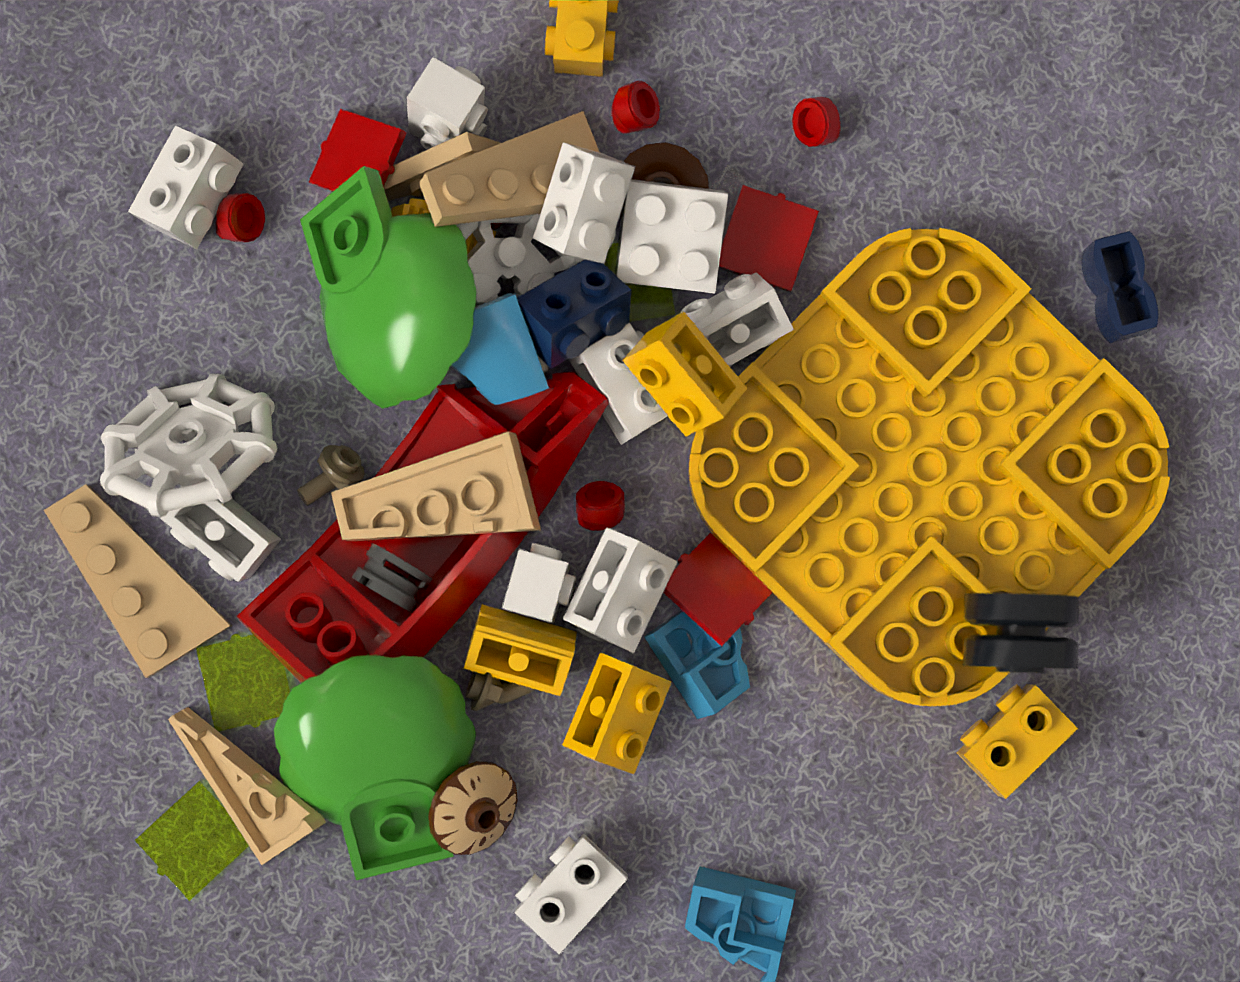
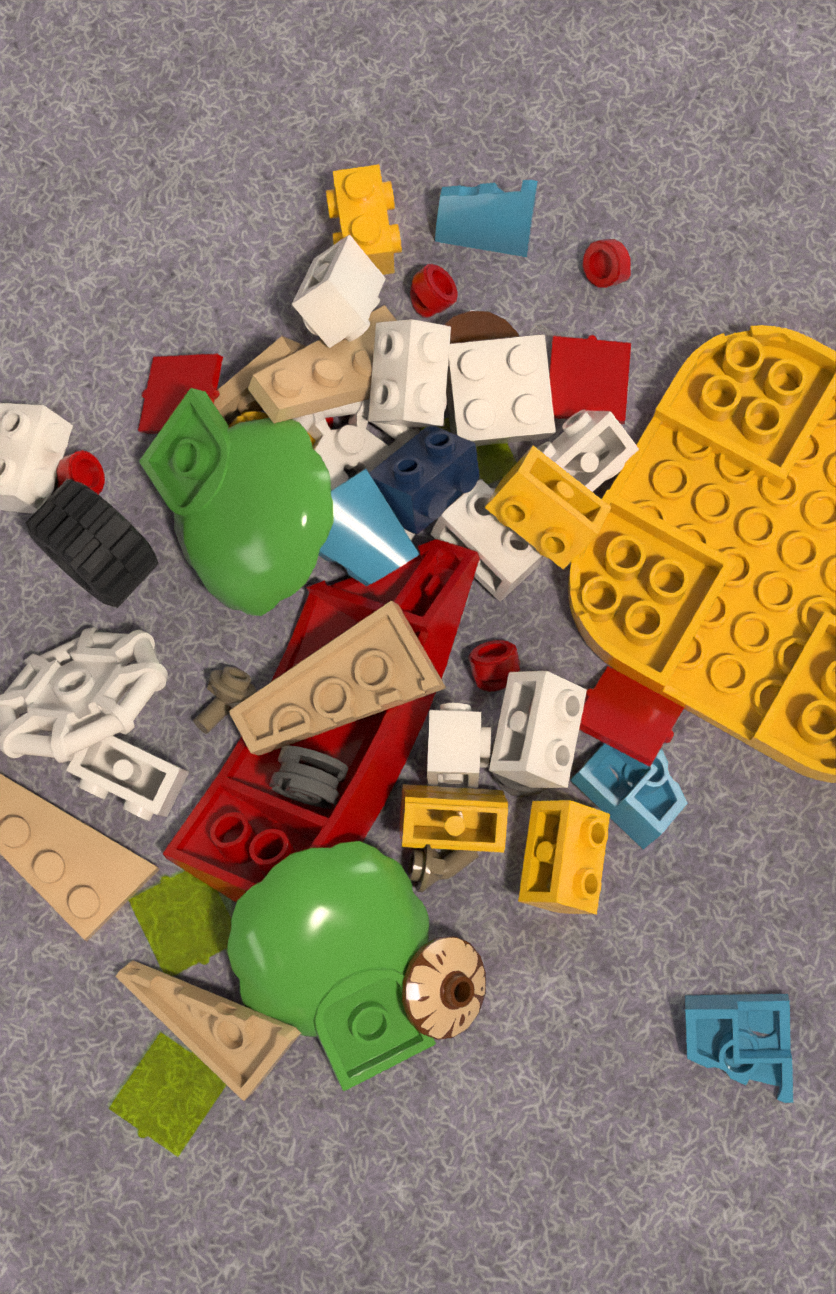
camera: 10 degrees left, 10 degrees down
(233, 296) = (92, 543): none -> black tyre
(445, 104) = (253, 319): white brick -> none
(536, 98) = (339, 293): none -> white brick
(575, 896) = (568, 1050): white brick -> none
(706, 46) = (487, 217): none -> dark azure slope

